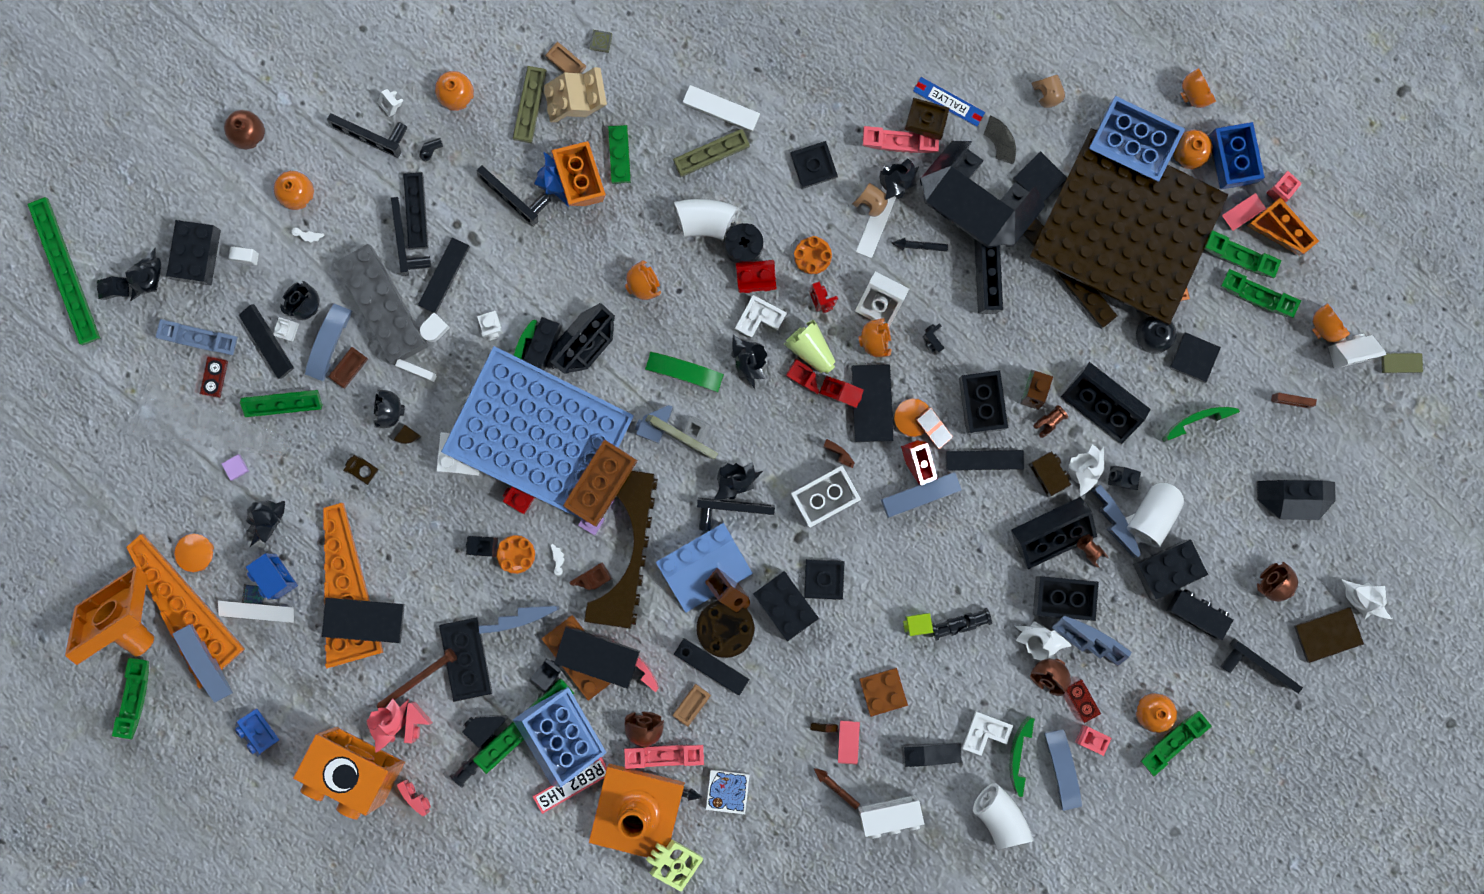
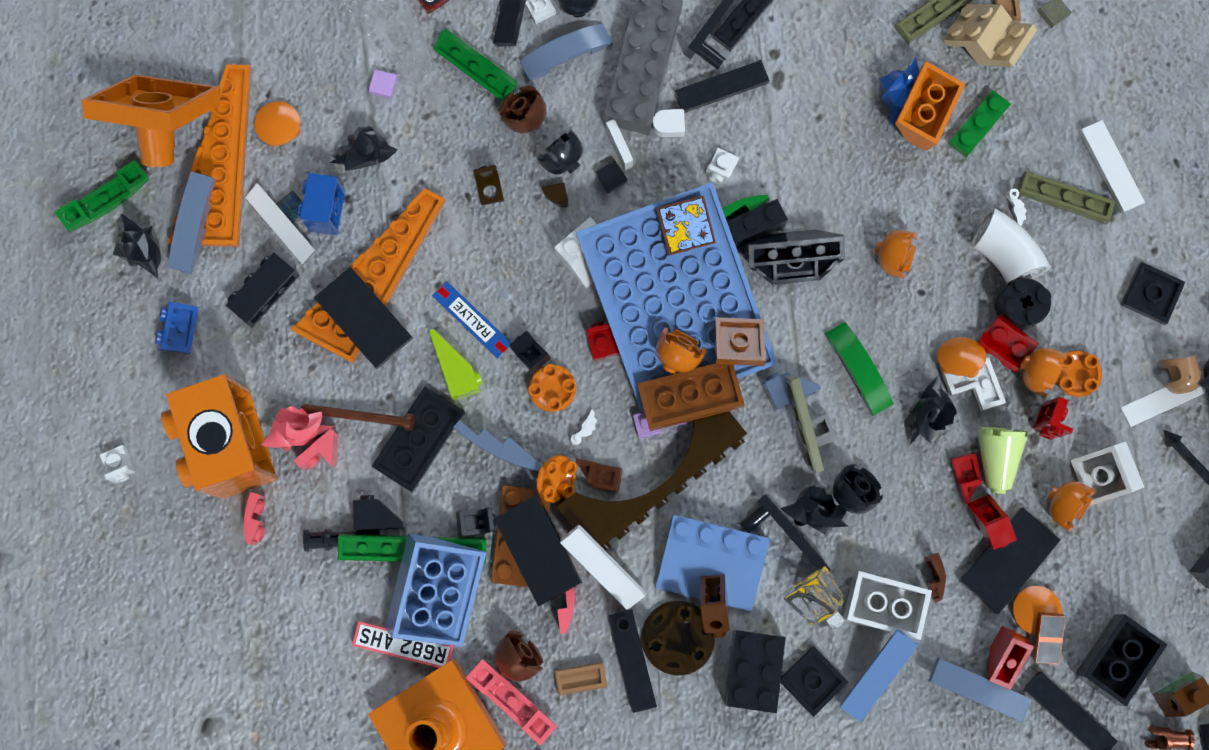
camera: 45 degrees right, 5 degrees down
(184, 707) = (138, 247): none -> black hair
(285, 661) = (262, 289): none -> black brick
(301, 845) = (117, 464): none -> white bracket
(337, 404) = (524, 110): none -> copper cylinder
(348, 367) = (563, 88): copper tile -> none
(428, 559) = (472, 319): none -> sticker
(429, 394) = (611, 176): none -> black tile
(450, 598) = (458, 373): none -> lime slope
(502, 386) = (685, 225): none -> tile
(528, 213) = (845, 75): black piece -> none
(568, 605) = (556, 479): none -> orange dish
(569, 464) = (678, 351): none -> orange cylinder
(599, 425) = (739, 341): none -> plate
(643, 630) = (603, 567): none -> white tile
(688, 185) = (1018, 206): none -> white piece
(736, 310) = (961, 357): none -> orange dish
(747, 446) = (856, 490): none -> black cylinder
(783, 531) = (817, 598): none -> clear torso
(789, 274) = (1042, 370): none -> orange cylinder
(856, 541) = (879, 675): none -> medium blue tile
(933, 343) = (1121, 556): black bracket -> none

